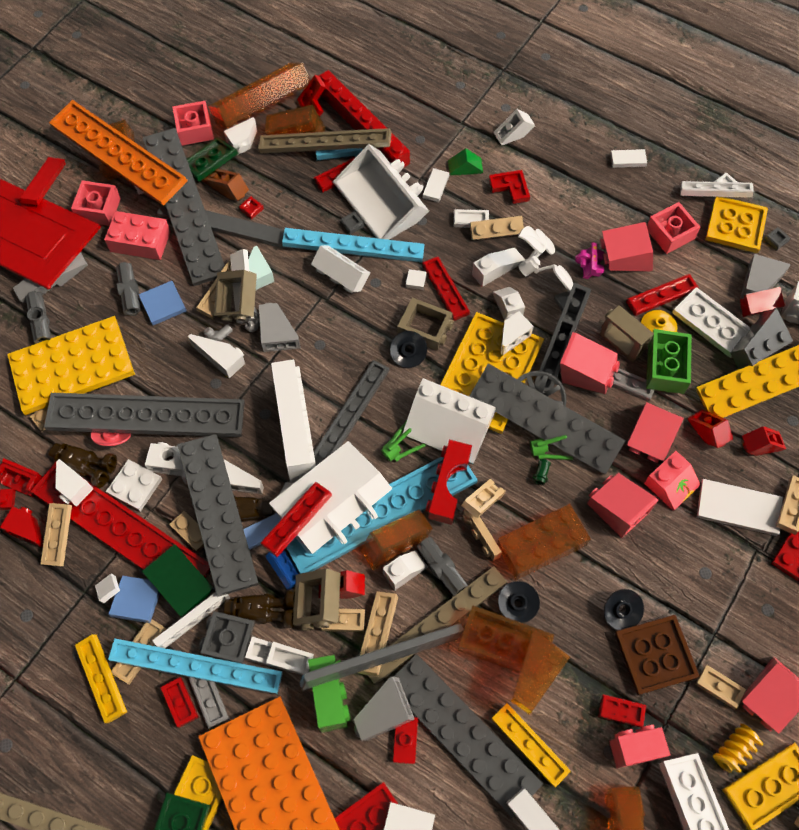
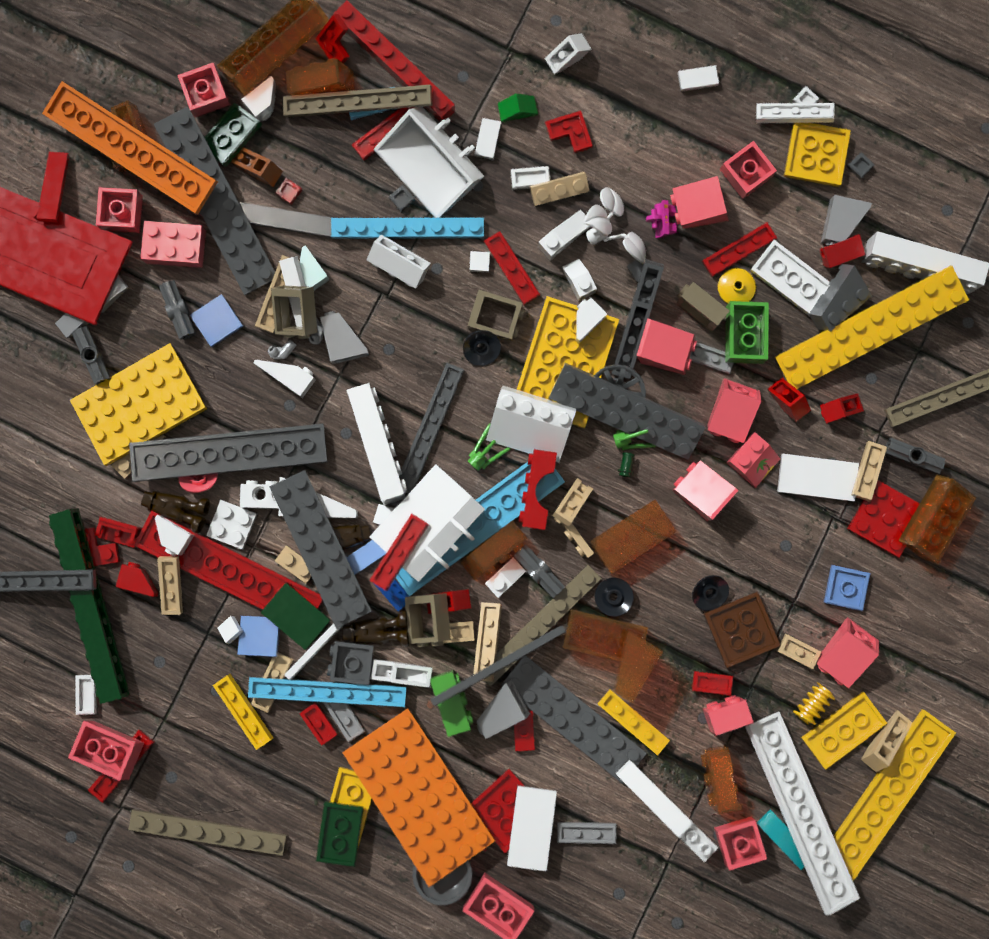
camera: 10 degrees left, 20 degrees up
(772, 624) = (846, 587): none -> medium blue tile

